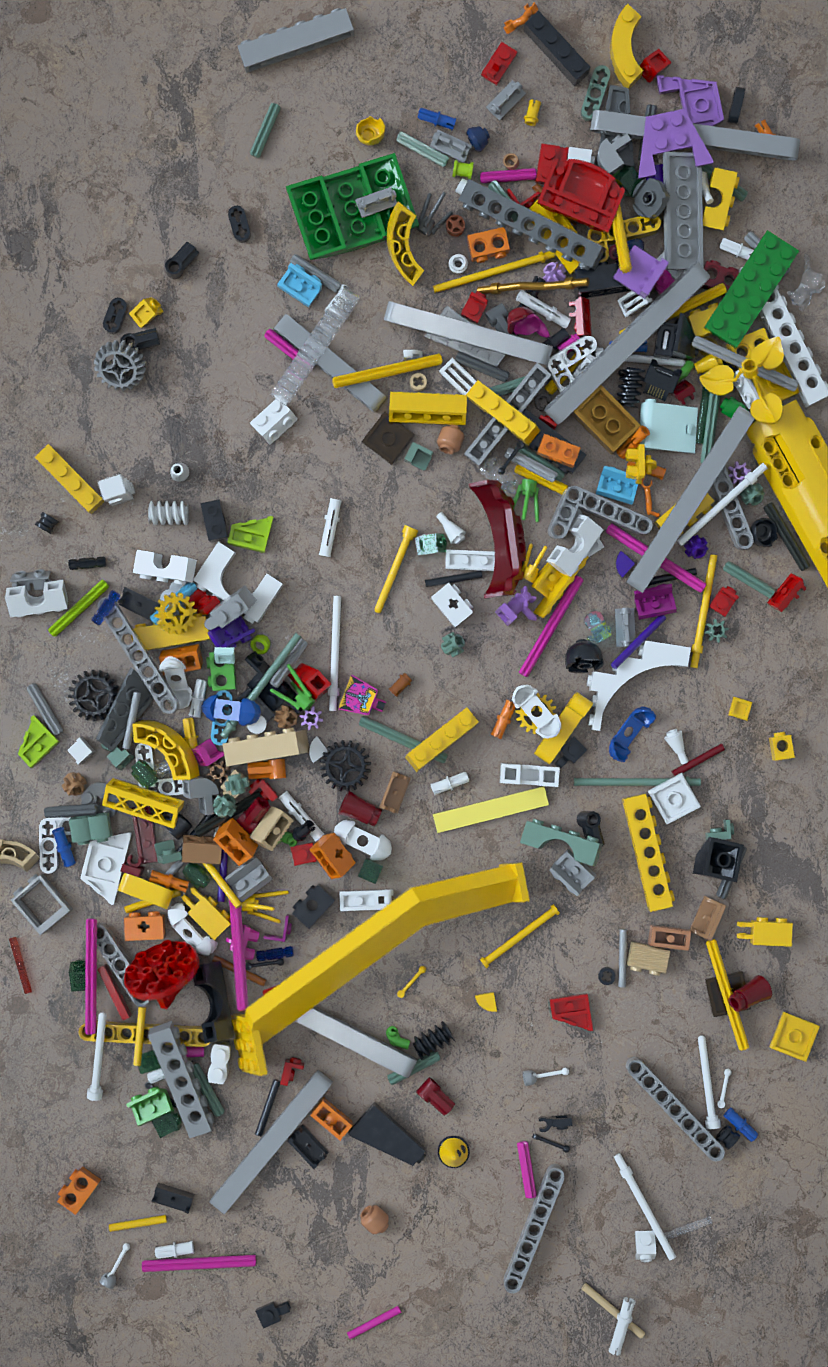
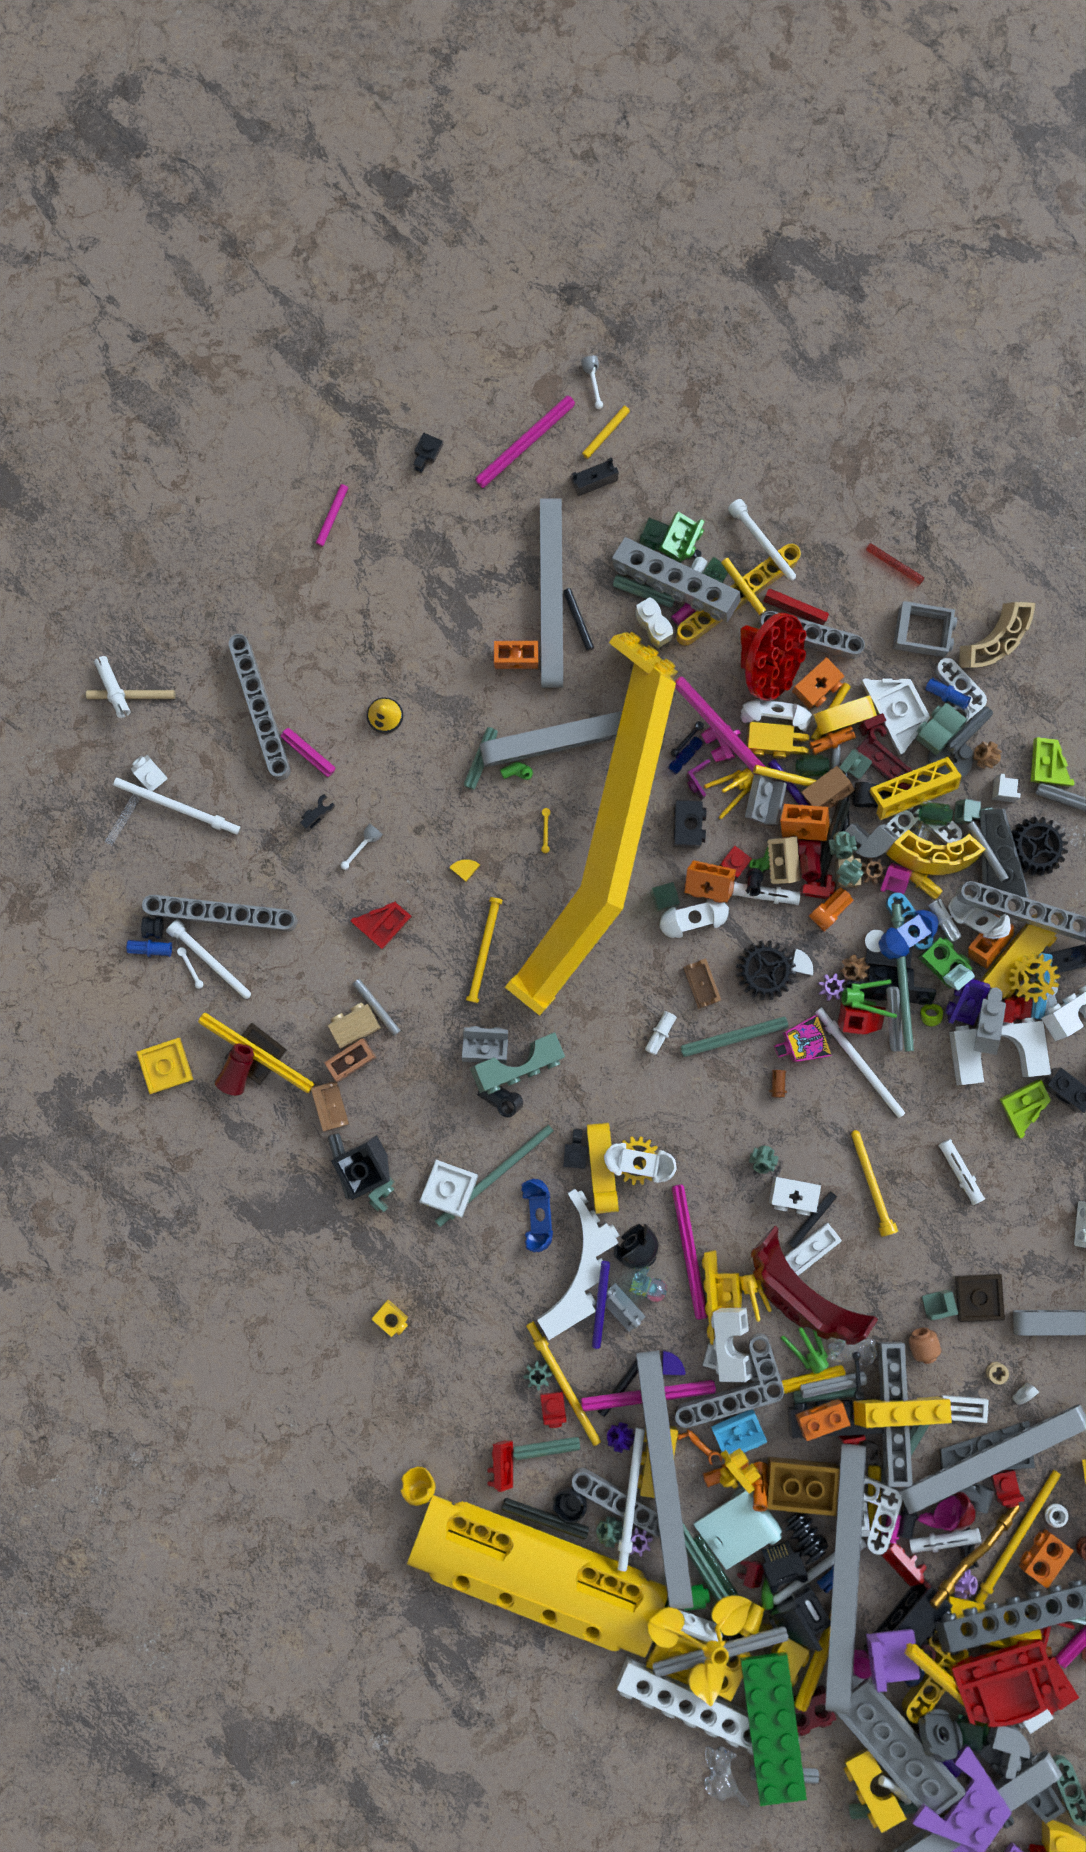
camera: 140 degrees right, 5 degrees down
(77, 975) = (837, 596): clear green bracket -> none
(80, 1191) = (678, 417): orange brick -> none
(91, 976) = (830, 602): dark pink axle -> none
(174, 1250) = (555, 435): white axle -> none
(219, 1023) = (723, 686): black arch -> none
(249, 975) = (696, 717): dark orange bar -> none
(265, 747) = (849, 927): tan wedge -> none
(288, 1073) = (587, 662): red bracket -> none
(308, 1146) = (515, 614): black hinge -> none
(359, 809) = (720, 942): dark red plant -> none
(364, 899) = (650, 865): white plate -> none
(374, 1219) = (405, 600): nougat head -> none
(385, 1134) = (457, 680): black slope -> none
(387, 370) = (1036, 1359): yellow axle -> none
(428, 408) = (970, 1356): yellow brick -> none
(431, 544) = (860, 1234): bracket -> none
(432, 1040) = (484, 796): black piece -> none
(432, 1093) = (447, 749): dark red piece -> none
(441, 739) = (702, 1065): yellow brick -> none
(454, 532) = (848, 1262): white cone -> none
(482, 367) = (953, 1437): dark grey axle -> none
(490, 809) = (604, 1040): light yellow tile -> none
(503, 719) = (661, 1130): orange pin -> none
(519, 603) = (739, 1231): medium lavender piece -> none
(529, 774) = (597, 1099): white arch -> none
(566, 1148) = (288, 799): black hinge -> none
(600, 975) = (383, 976): black bush -> none
(624, 307) = (861, 1633): white tile -> none
(655, 601) = (615, 1354): magenta bracket -> none
(666, 897) = (390, 1081): yellow brick -> none
(675, 740) = (491, 1242): white cone -> none
(698, 760) = (454, 1244): dark red bar -> none
(736, 249) = (818, 1753): white axle -> none
(740, 708) = (456, 1321): yellow tile -> none
(768, 932) = (264, 1139): yellow hinge -> none

